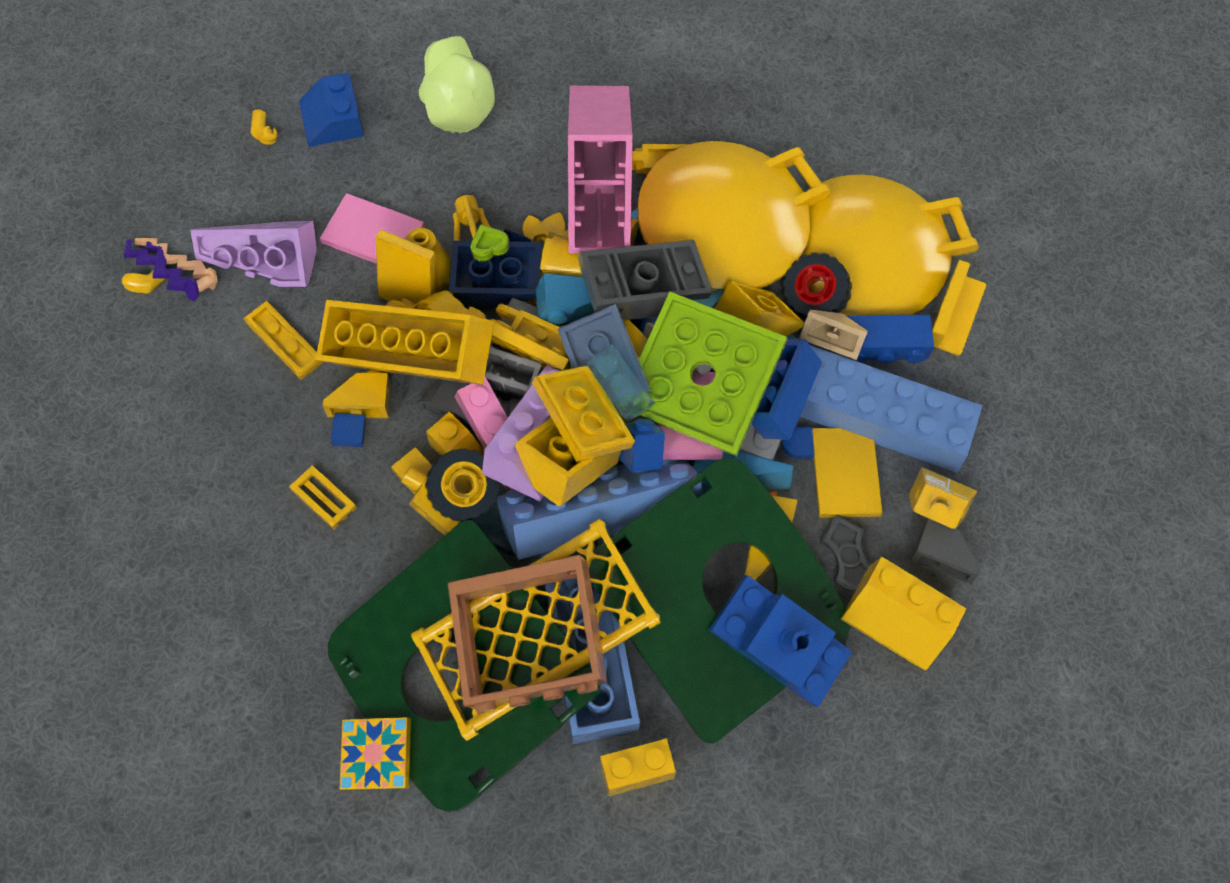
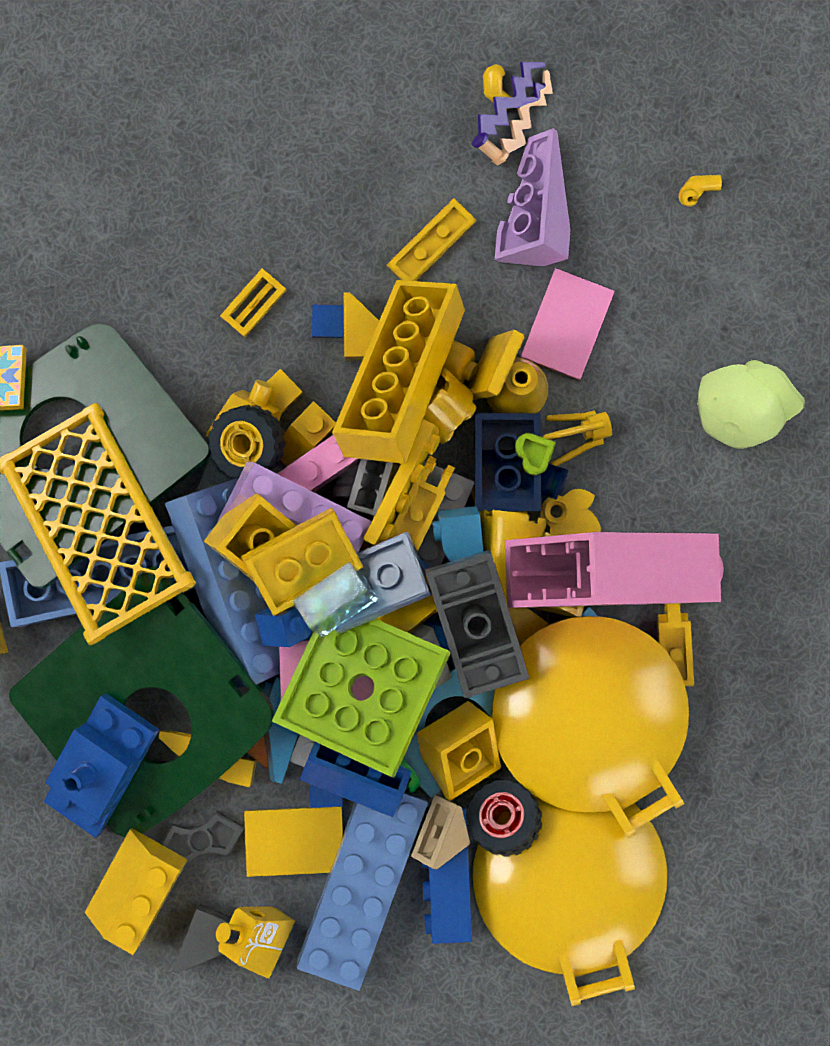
camera: 90 degrees right, 20 degrees up
(330, 111) = (722, 263): blue slope -> none
(510, 580) = (23, 513): nougat window -> none
(957, 310) = (490, 975): yellow panel -> none

